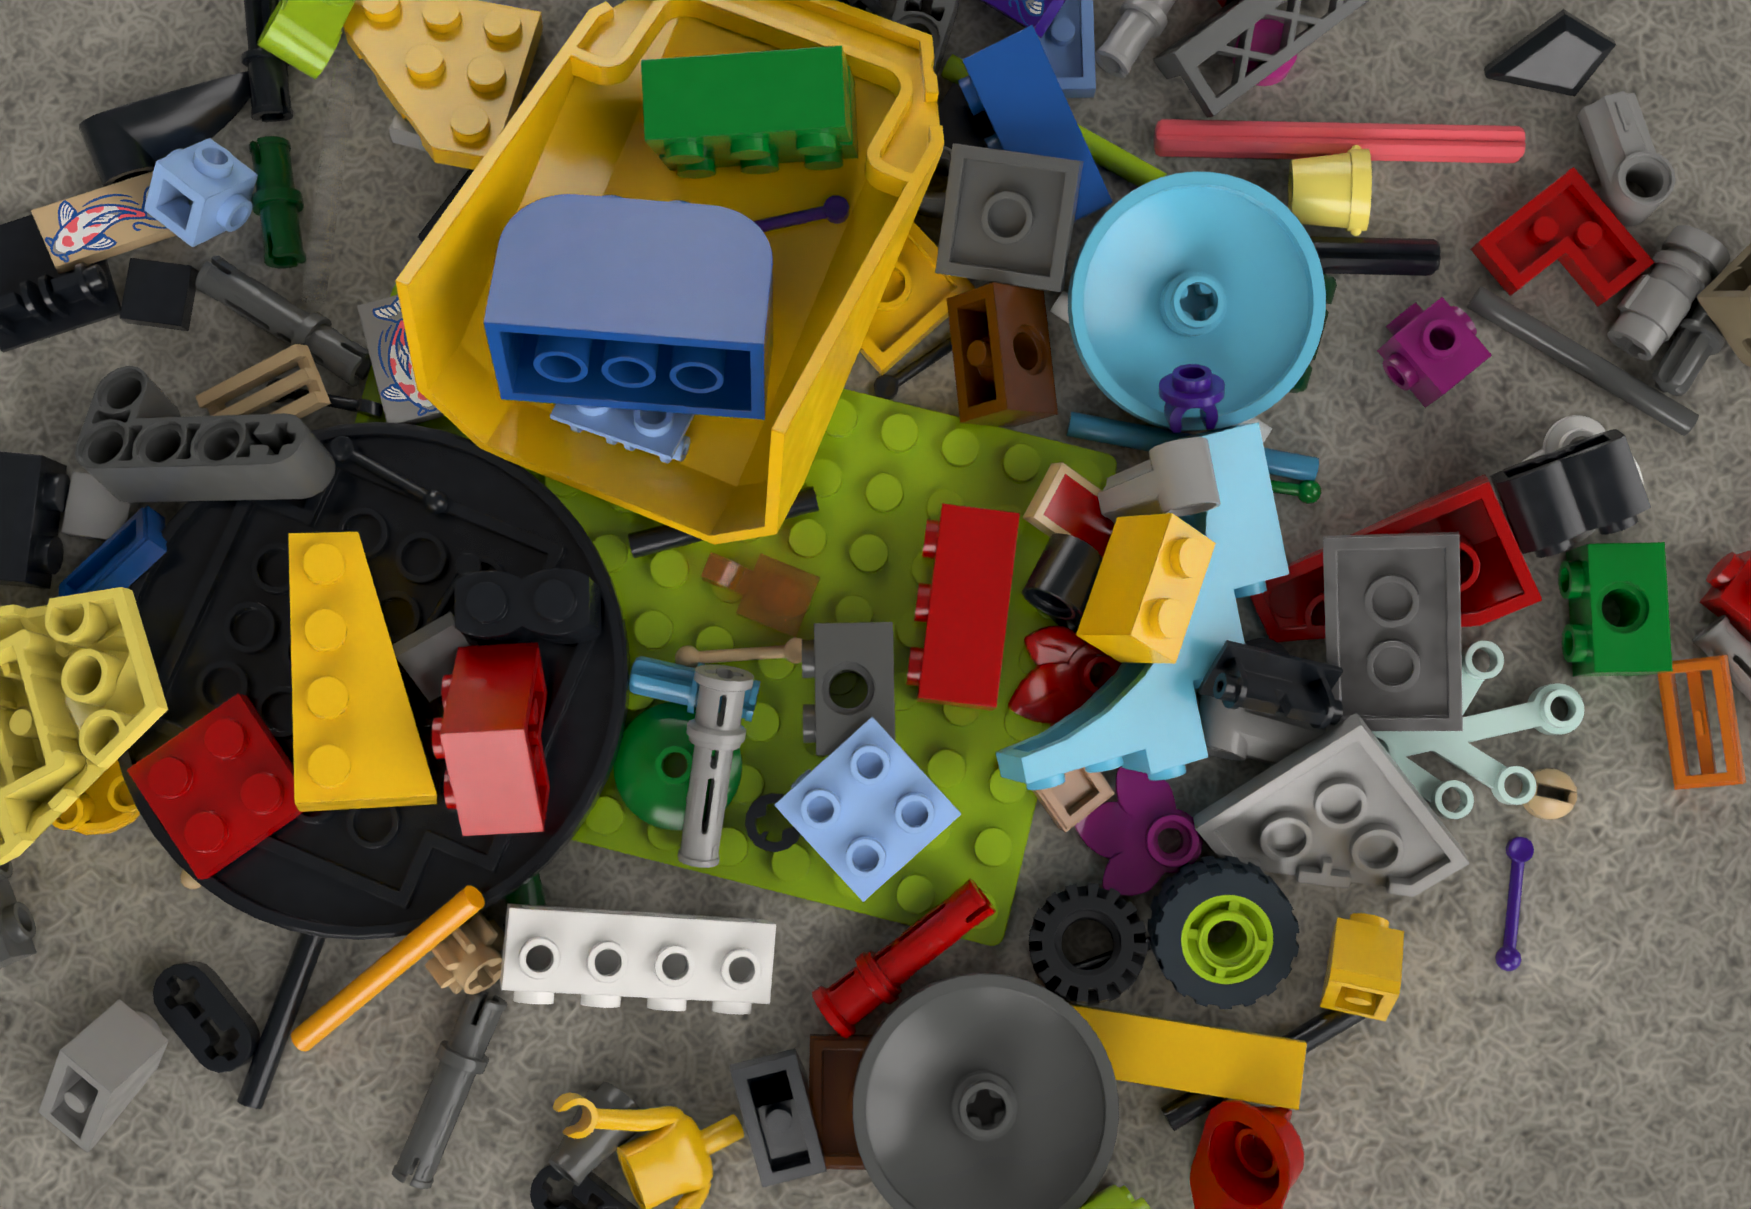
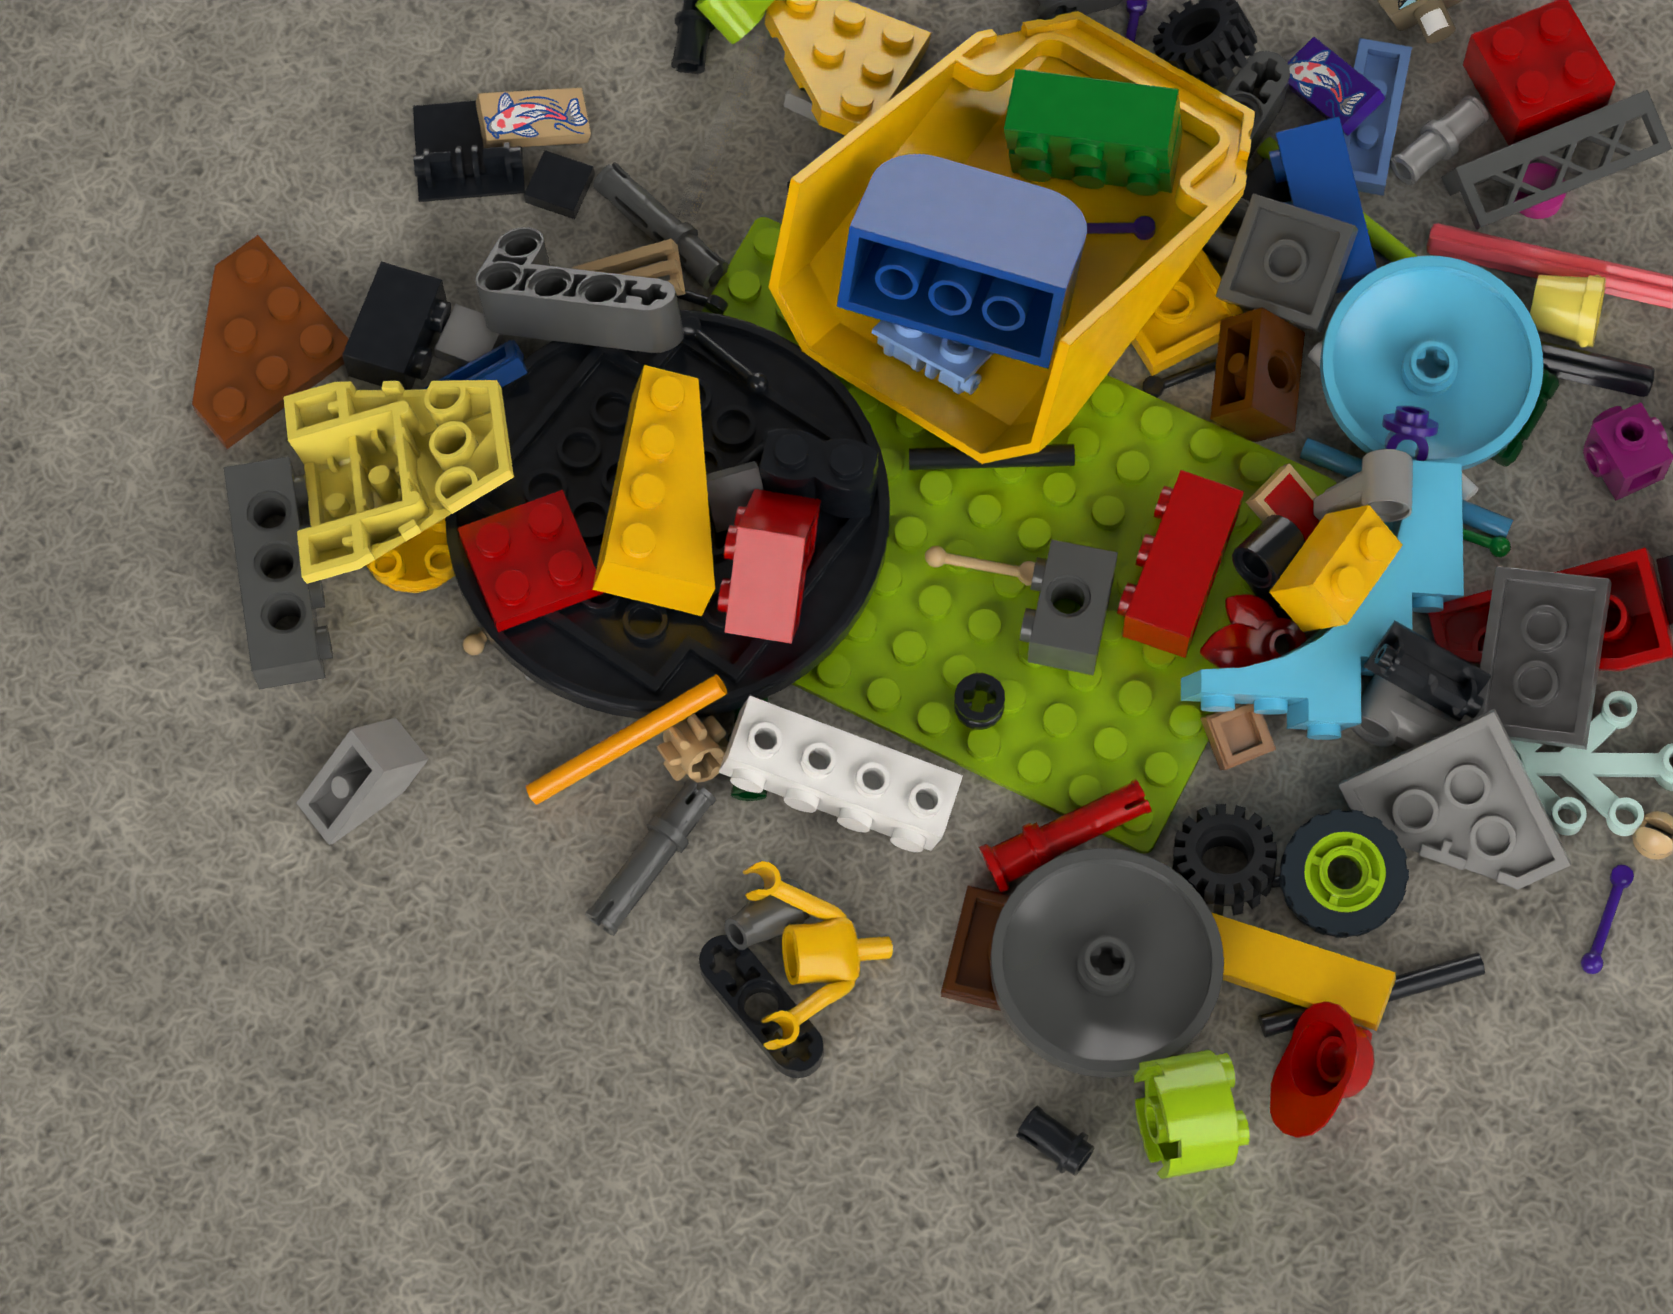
camera: 15 degrees right, 15 degrees down
(136, 135) = (596, 55): black piece -> none
(194, 1026) = (447, 761): black beam -> none
(200, 192) = (620, 109): light blue brick -> none
(277, 202) = (676, 133): dark green pin -> none
(280, 1021) = (523, 769): black bar -> none
(392, 363) = (750, 263): tile -> none
(641, 771) = (912, 665): green dish -> none
(677, 684) = (936, 577): dark azure axle -> none
(724, 735) = (914, 700): light grey pin -> none
(771, 593) = (1018, 520): clear orange plate -> none
(779, 1117) = (929, 928): black slope -> none
(867, 809) = (1062, 696): light blue hinge -> none
(1129, 833) = (1284, 782): magenta plate -> none
(1363, 967) = (1455, 926): yellow slope -> none

